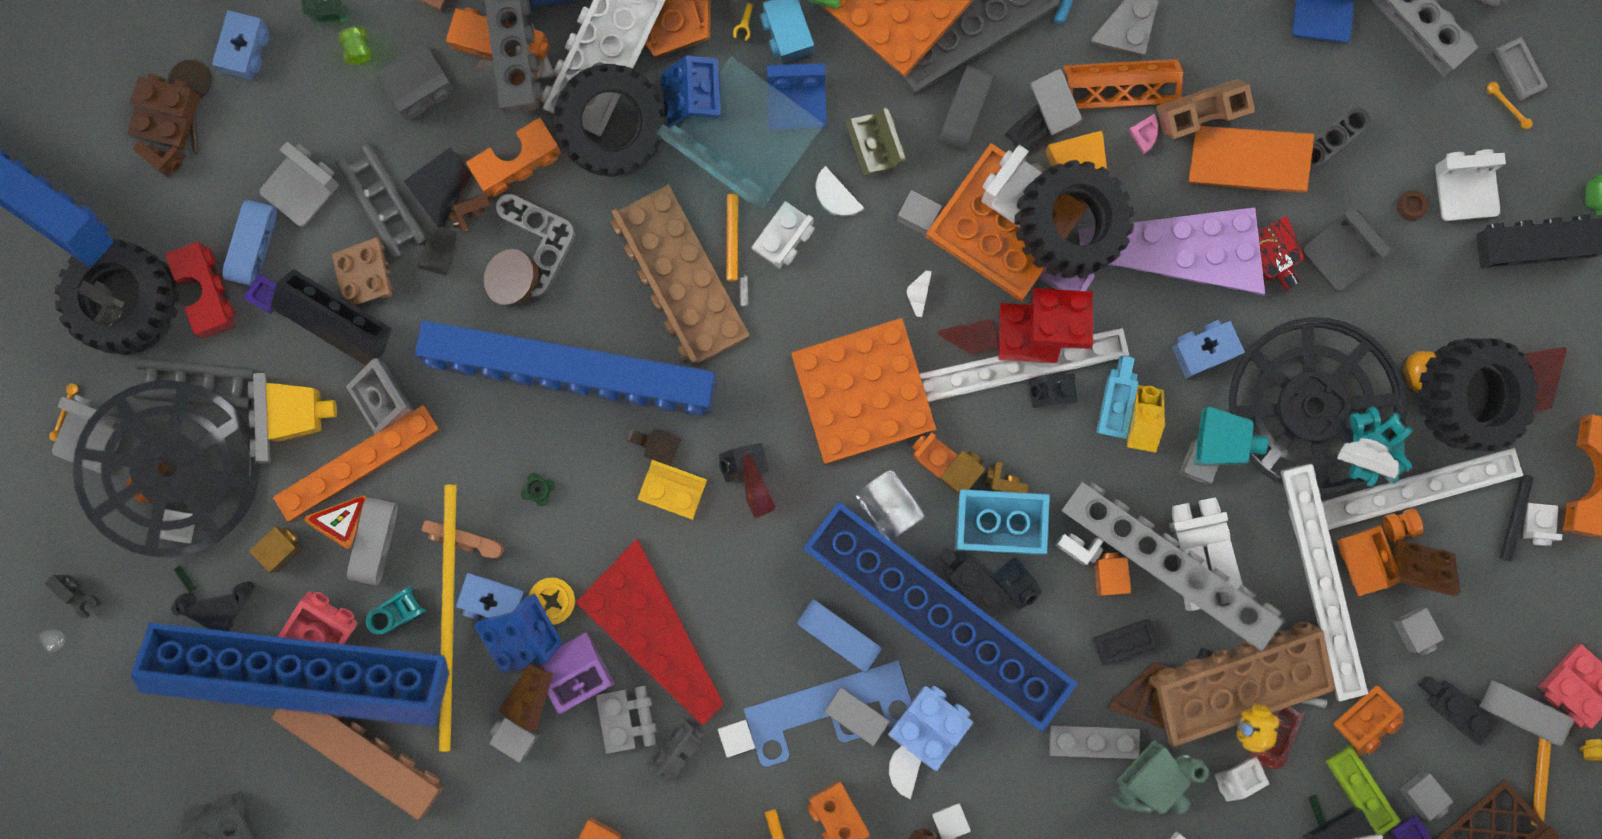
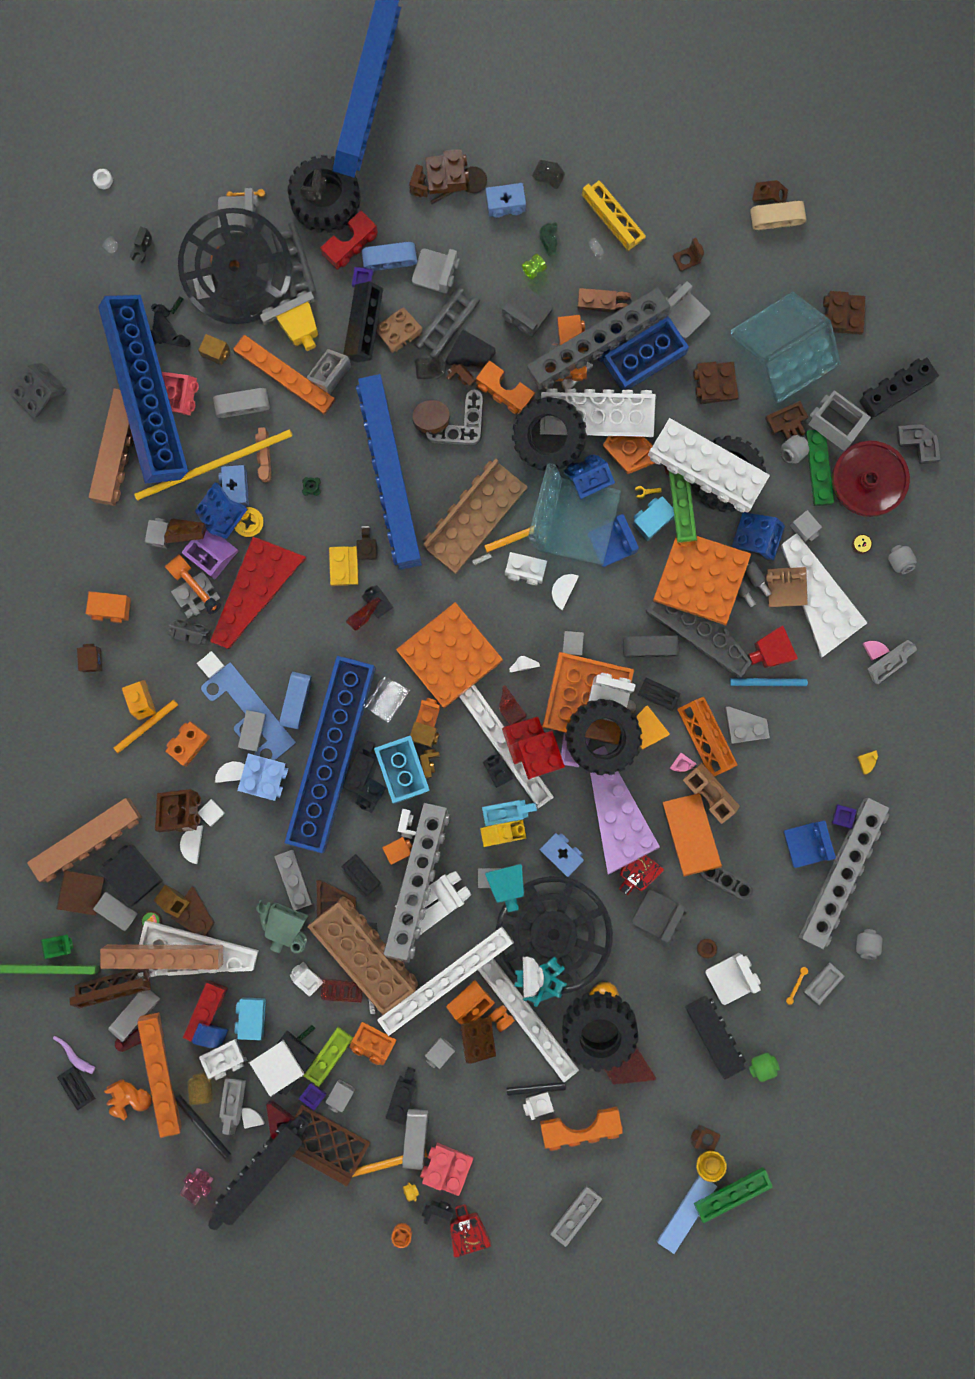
camera: 70 degrees right, 0 degrees up
(338, 521) = (244, 378): piece -> none
(396, 611) = (206, 435): teal piece -> none
(578, 727) = (179, 569): none -> orange piece
(876, 142) = (605, 600): olive bracket -> none
(1056, 103) = (676, 699): light grey slope -> none
(1257, 728) = (338, 974): yellow head -> none

